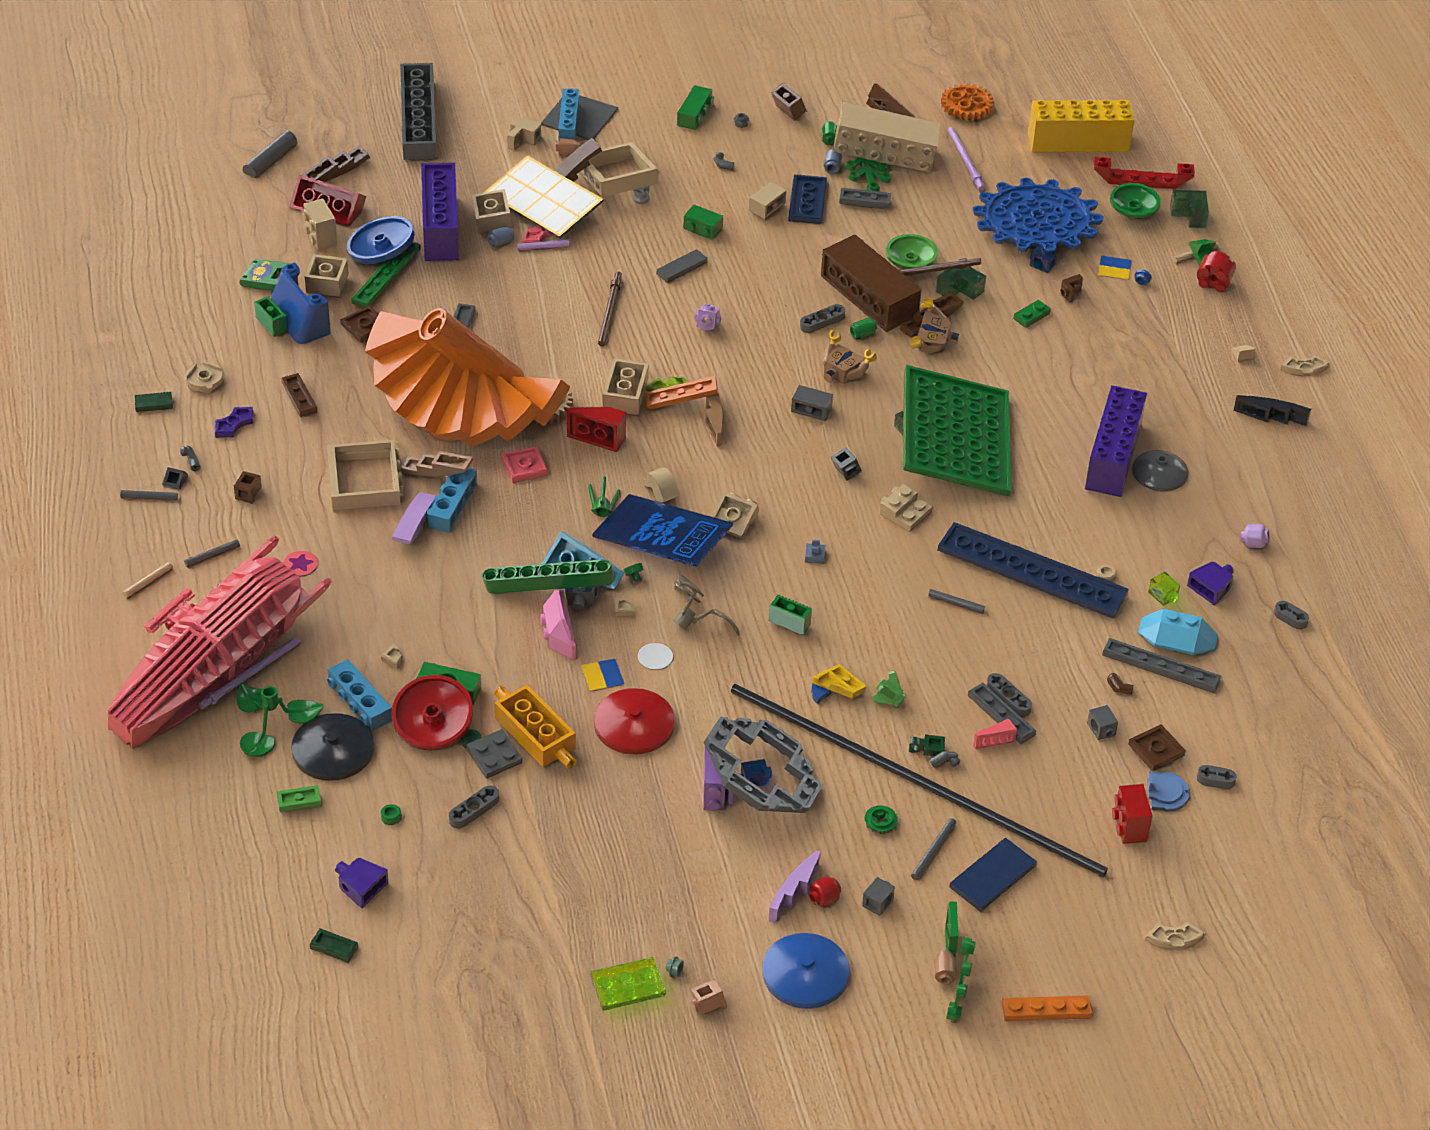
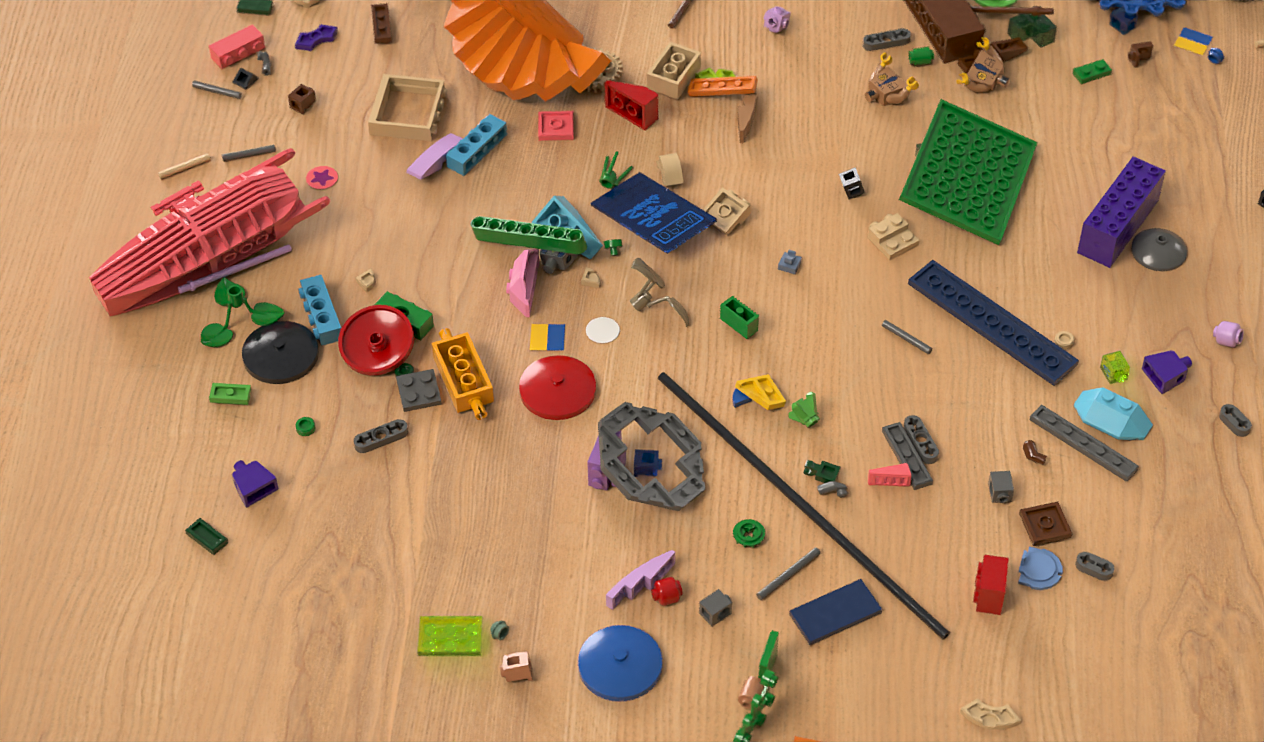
camera: 20 degrees right, 5 degrees up
(153, 446) = (236, 46): none -> coral brick
(440, 465) = (472, 111): medium nougat slope -> none
(812, 402) = (843, 118): dark grey brick -> none

